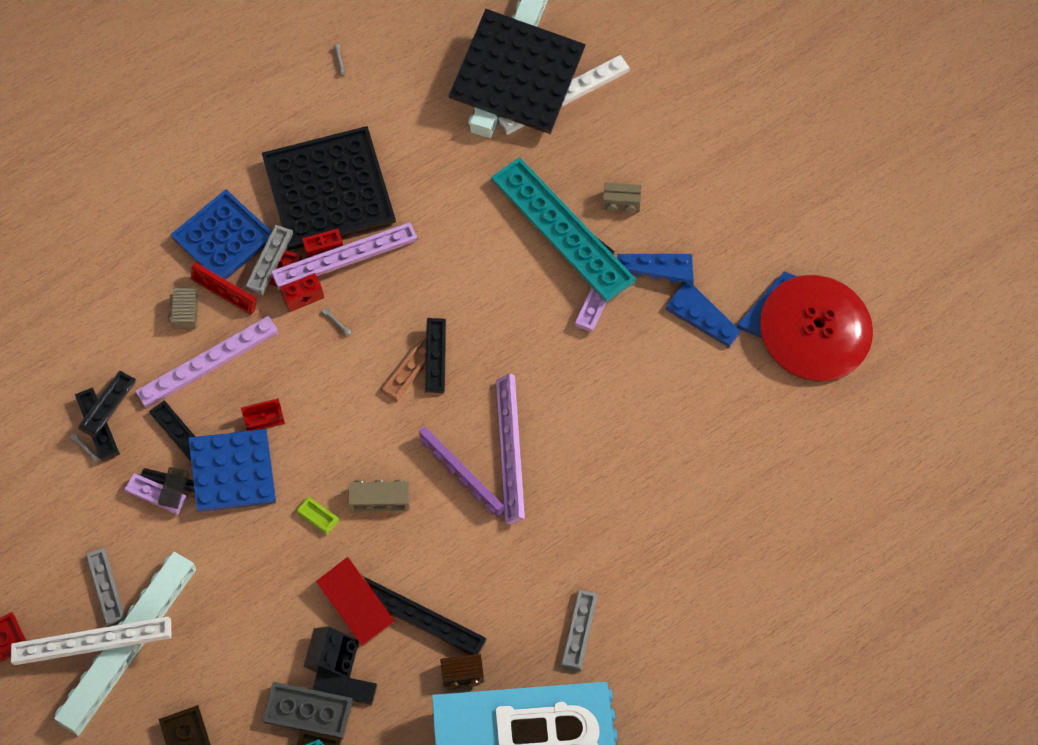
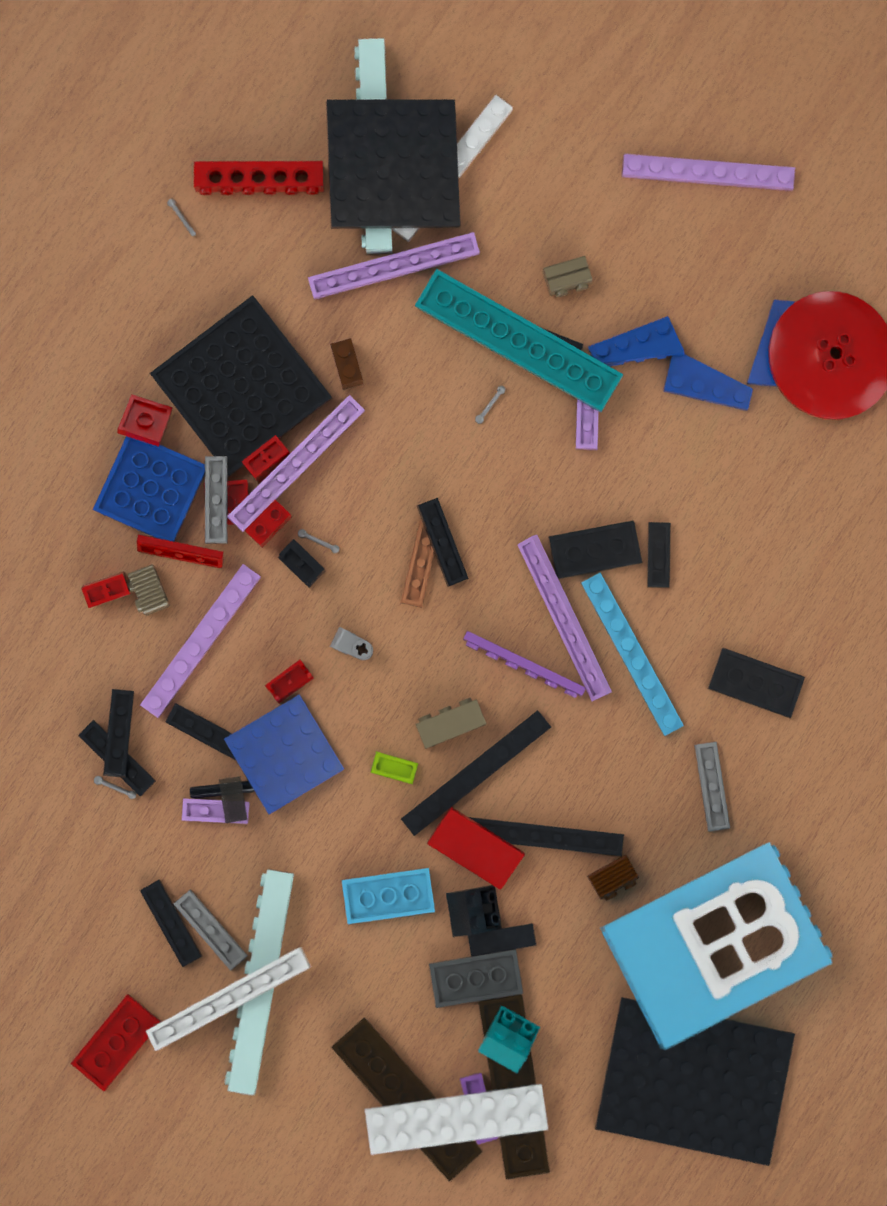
camera: 25 degrees left, 20 degrees up
(76, 570) = (171, 923): none -> black tile
(151, 293) = (105, 589): none -> red hinge
(242, 185) = (145, 420): none -> red plate
(265, 614) = (388, 896): none -> medium azure plate
(315, 331) = (301, 563): none -> black hinge
(327, 407) = (349, 642): none -> light grey piece
(384, 543) = (475, 773): none -> black plate
(398, 44) = (249, 169): none -> red brick
(418, 199) = (347, 364): none -> reddish brown brick
(487, 145) = (393, 265): none -> lavender plate
(507, 277) = (480, 418): none -> light grey hinge
(555, 500) = (632, 654): none -> medium azure plate
(559, 407) = (595, 549): none -> black tile
(610, 430) = (658, 555): none -> black tile
(652, 560) = (756, 683): none -> black tile
(767, 163) = (708, 172): none -> lavender plate

